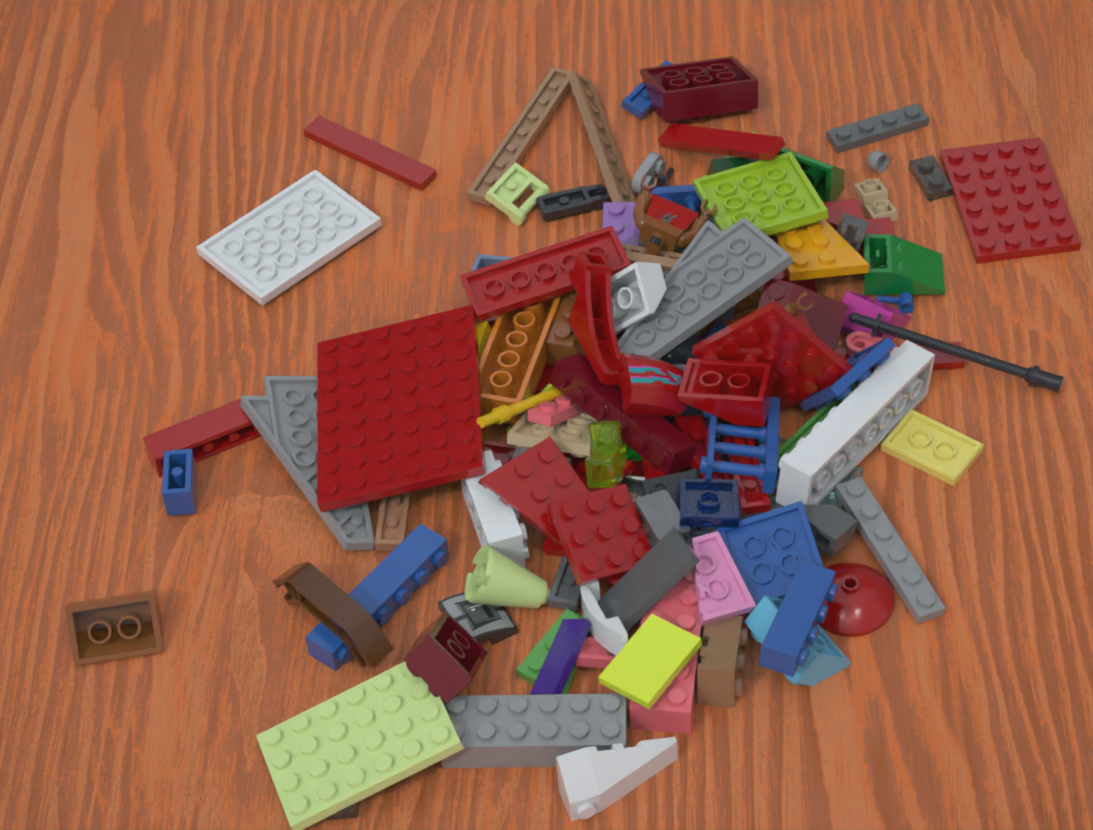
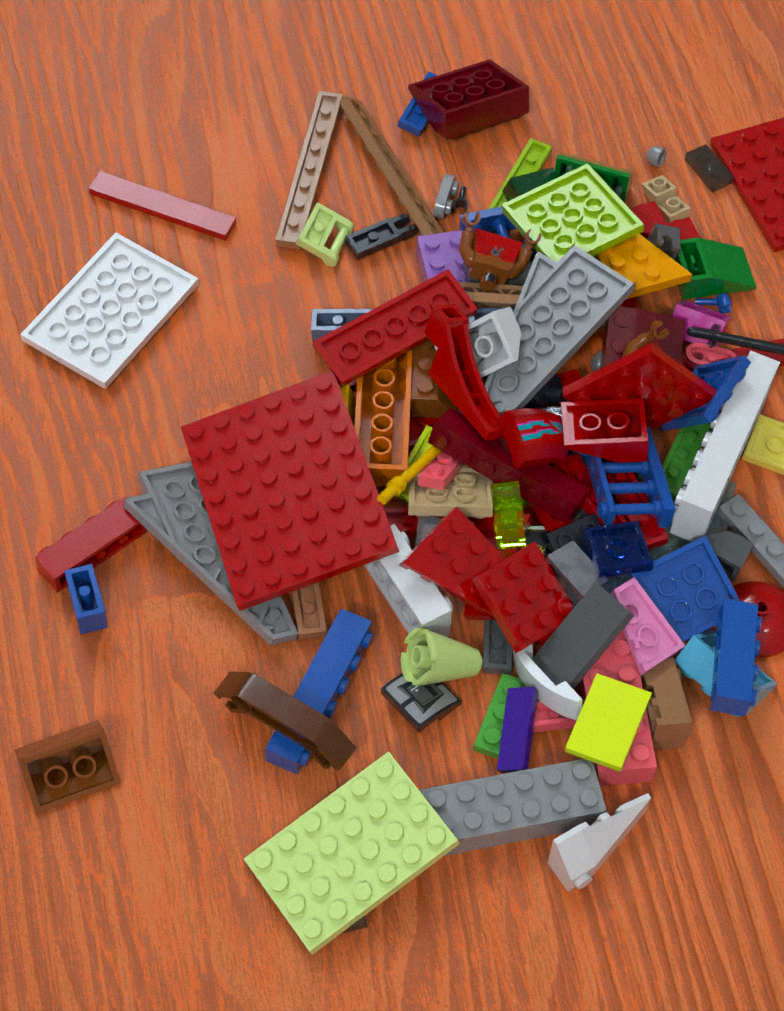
camera: 20 degrees left, 10 degrees up
(445, 657) = (415, 752): dark red brick -> none
(721, 141) = (513, 157): red tile -> none
(877, 128) = (645, 120): dark grey plate -> none

